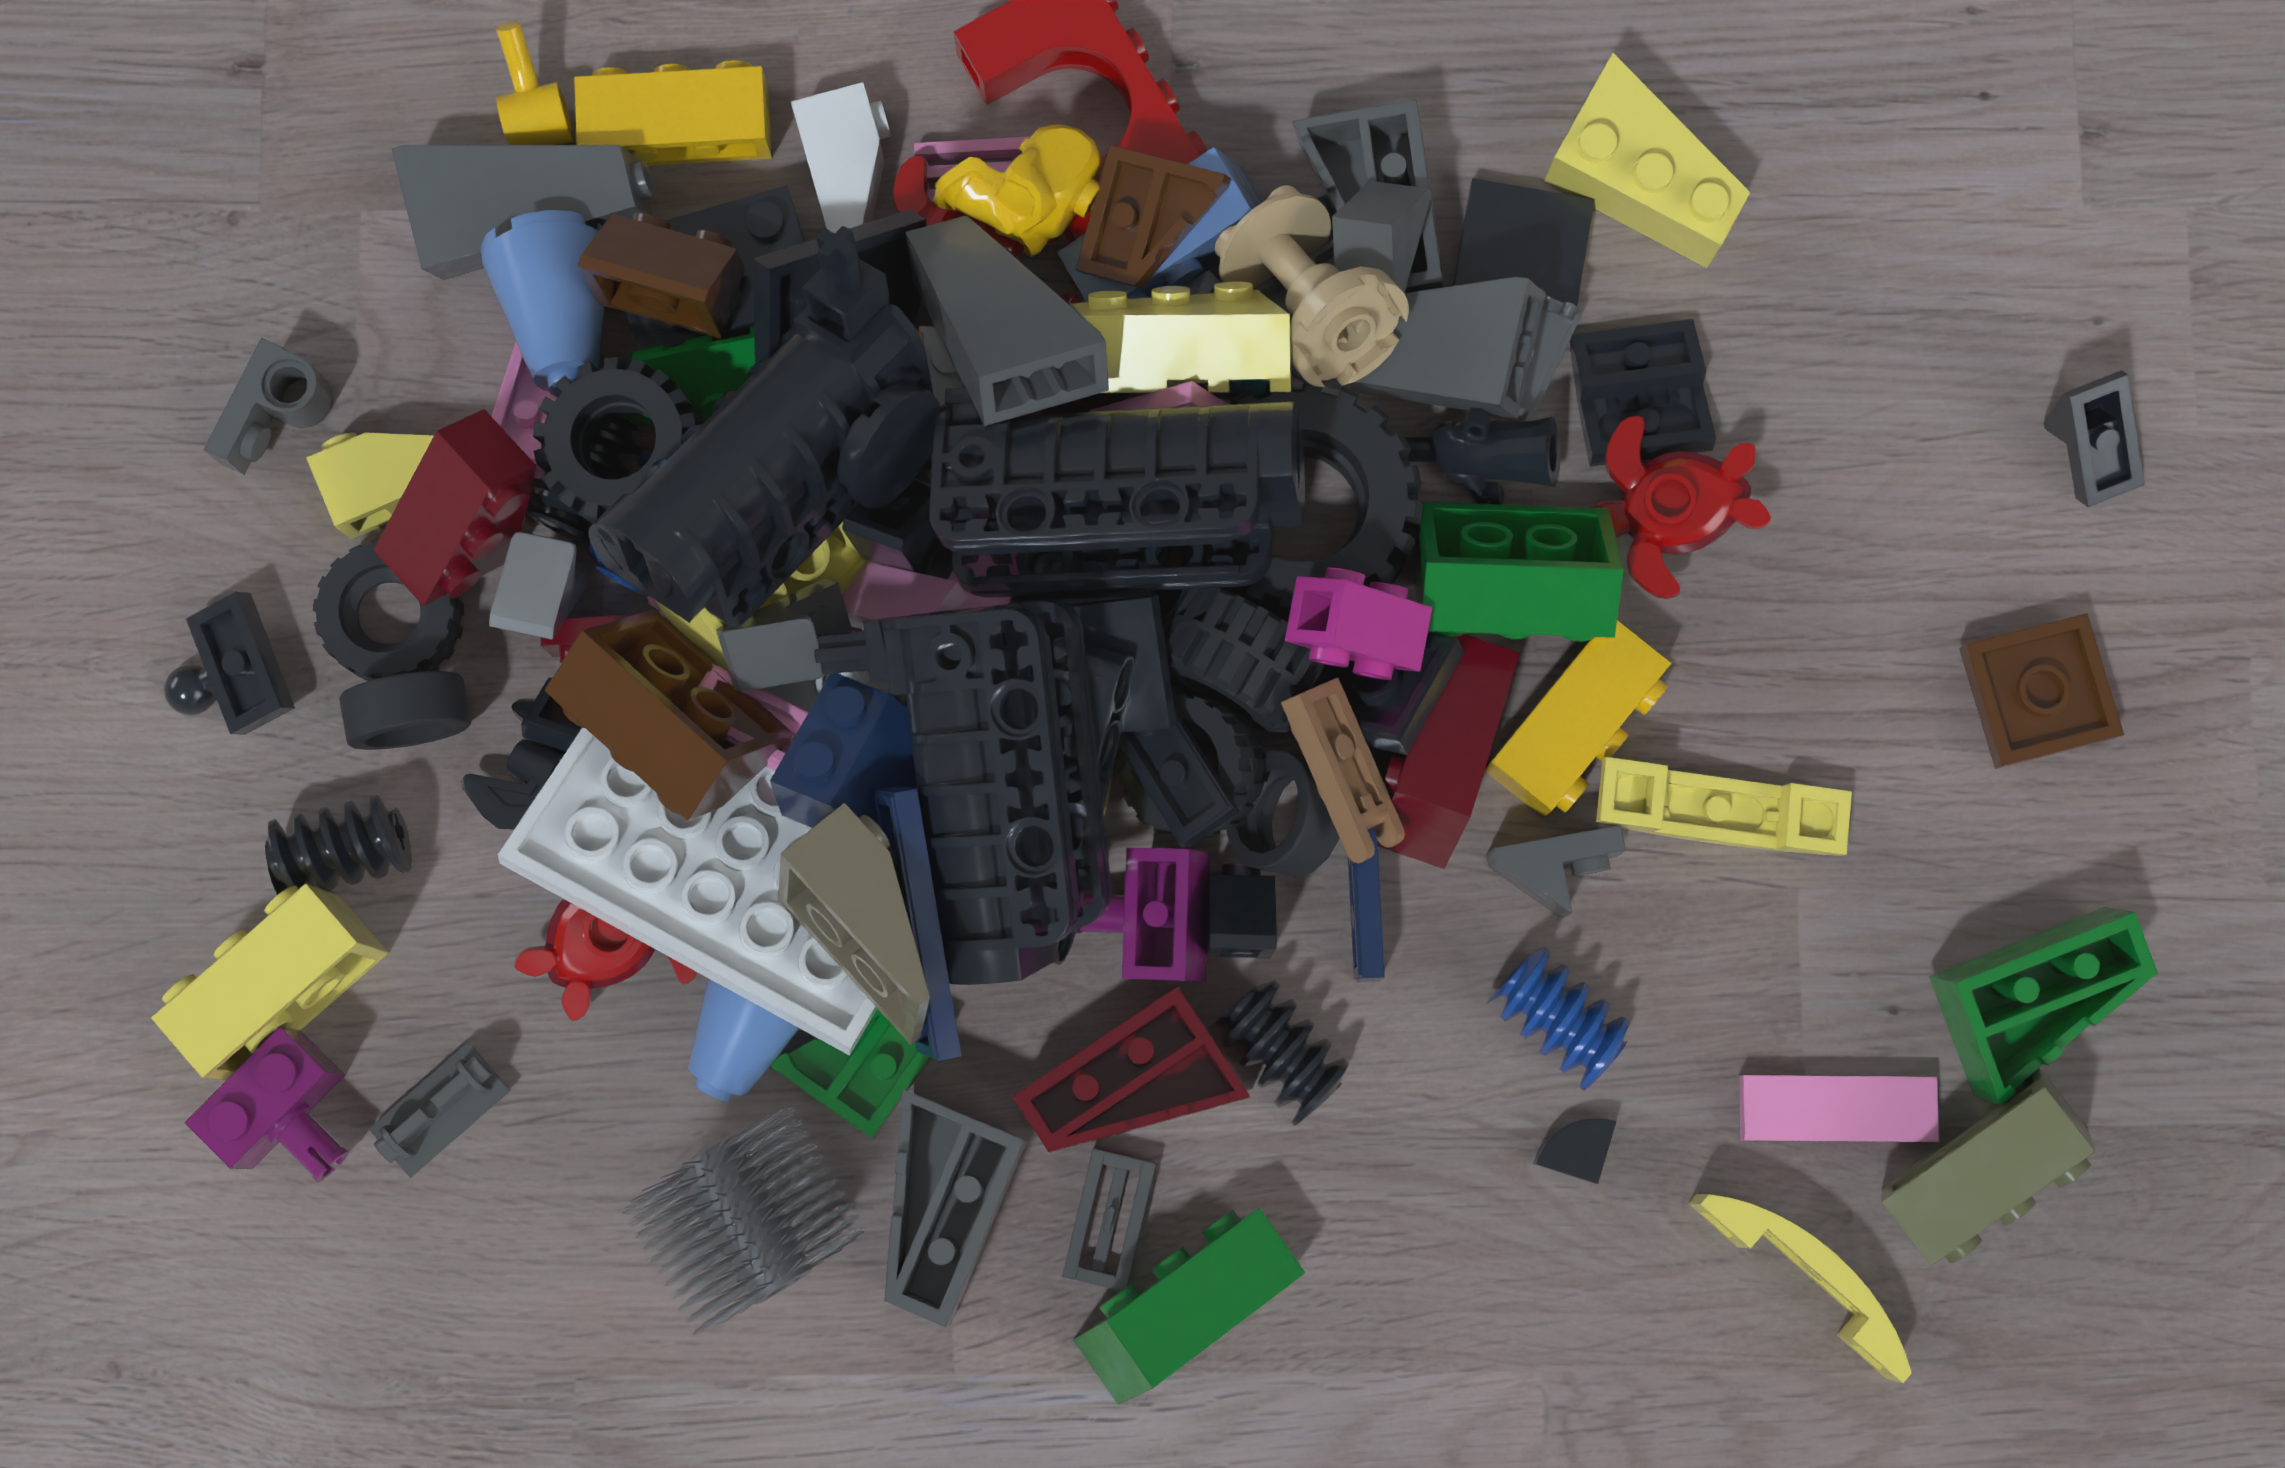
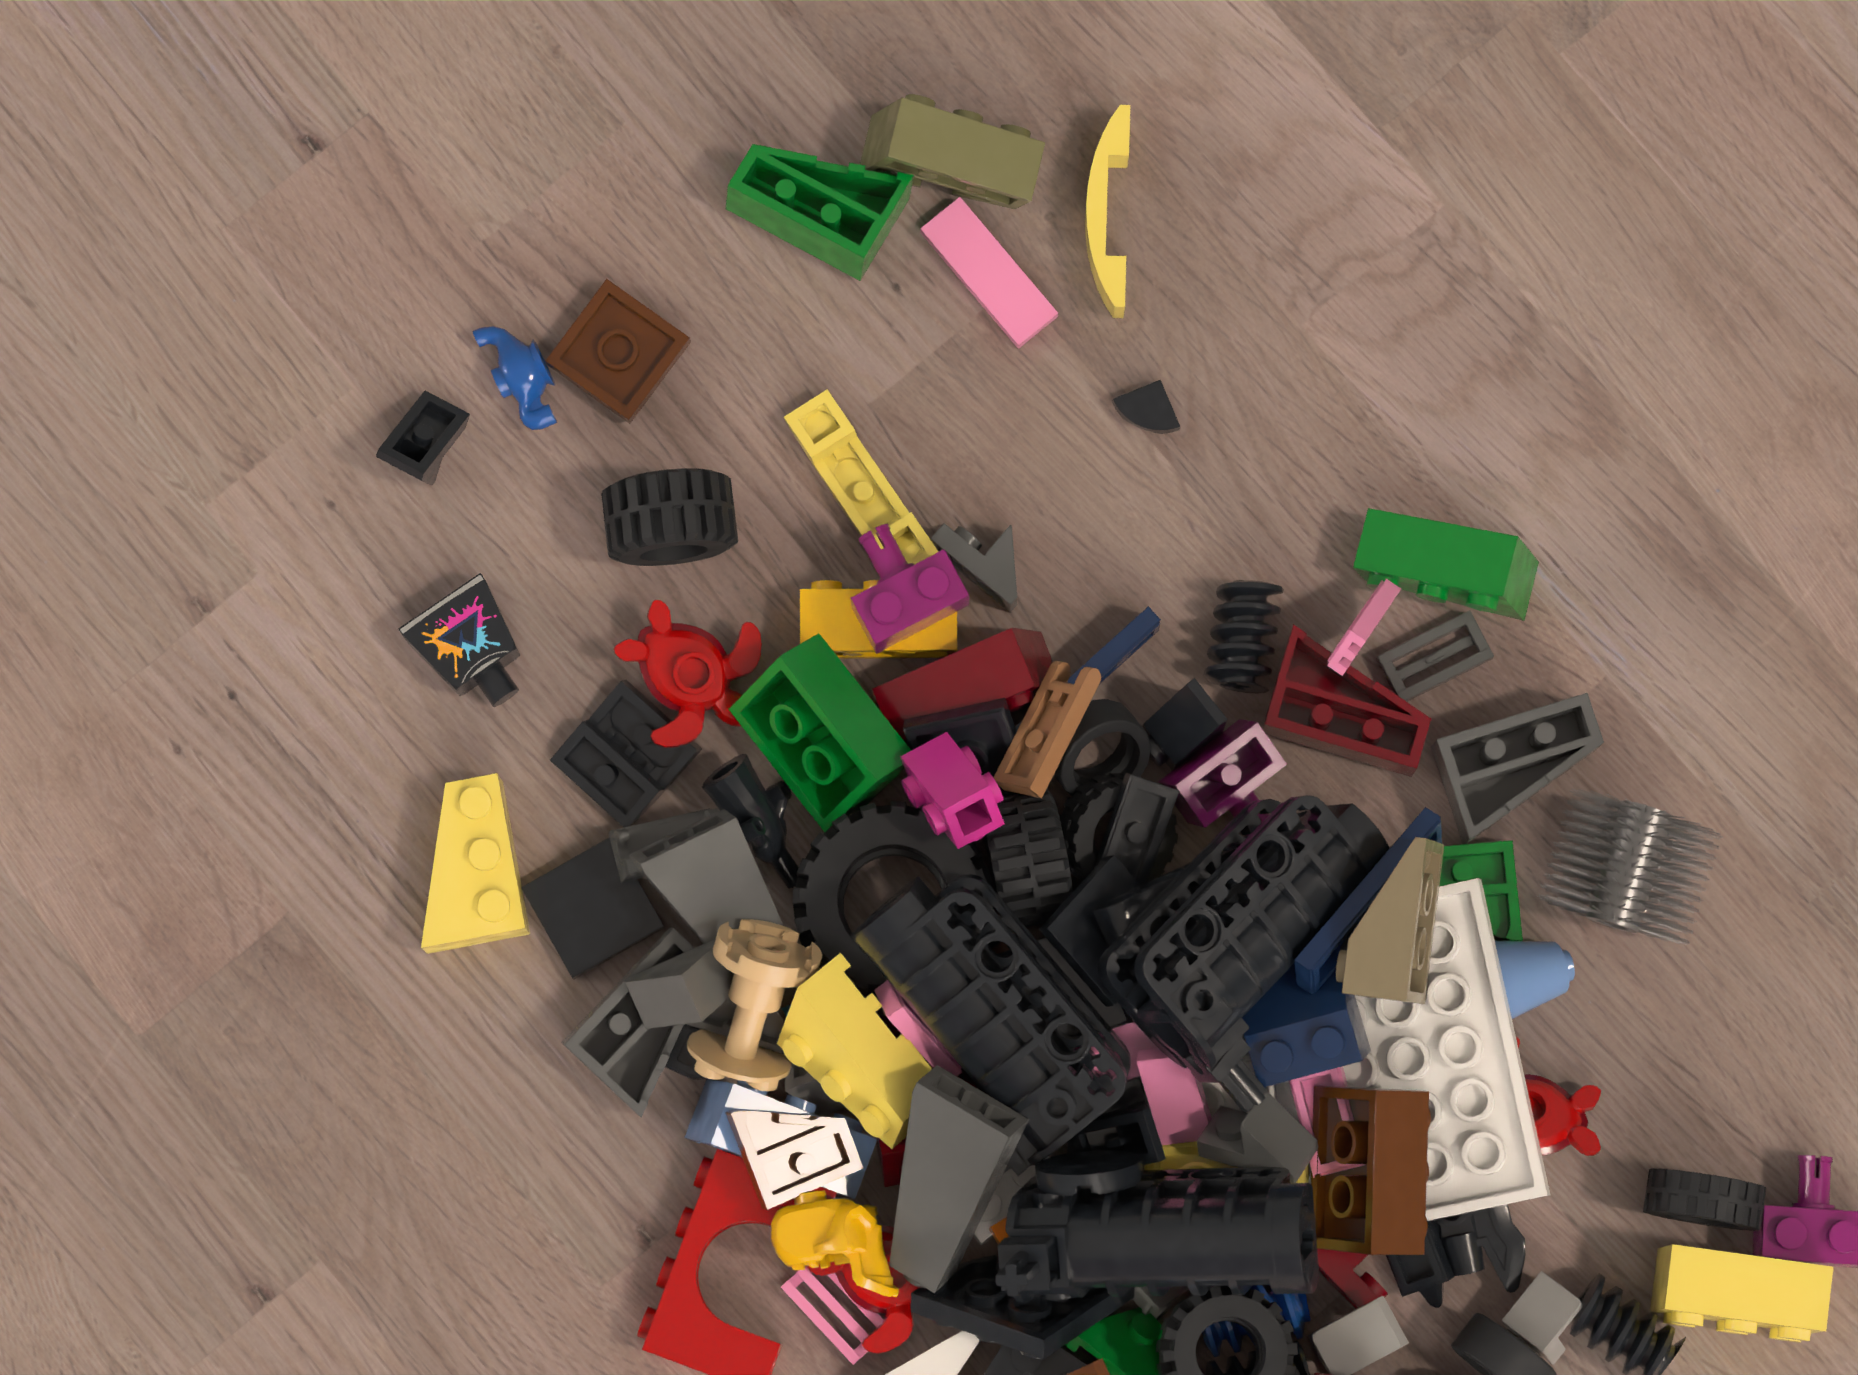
camera: 125 degrees left, 0 degrees up
(380, 1021) = (1704, 1199): none -> black tyre
(412, 782) = (1542, 1316): none -> light grey panel
(438, 1110) = (1725, 1127): dark grey hinge -> none
(1192, 1162) = (1363, 626): none -> bright pink tile
(1562, 1016) = (1076, 482): blue piece -> none
(1584, 748) = (907, 594): none -> magenta brick
(1842, 595) = (669, 517): none -> black tyre
(1868, 330) = (466, 641): none -> black torso
(2090, 582) = (520, 373): none -> blue piece

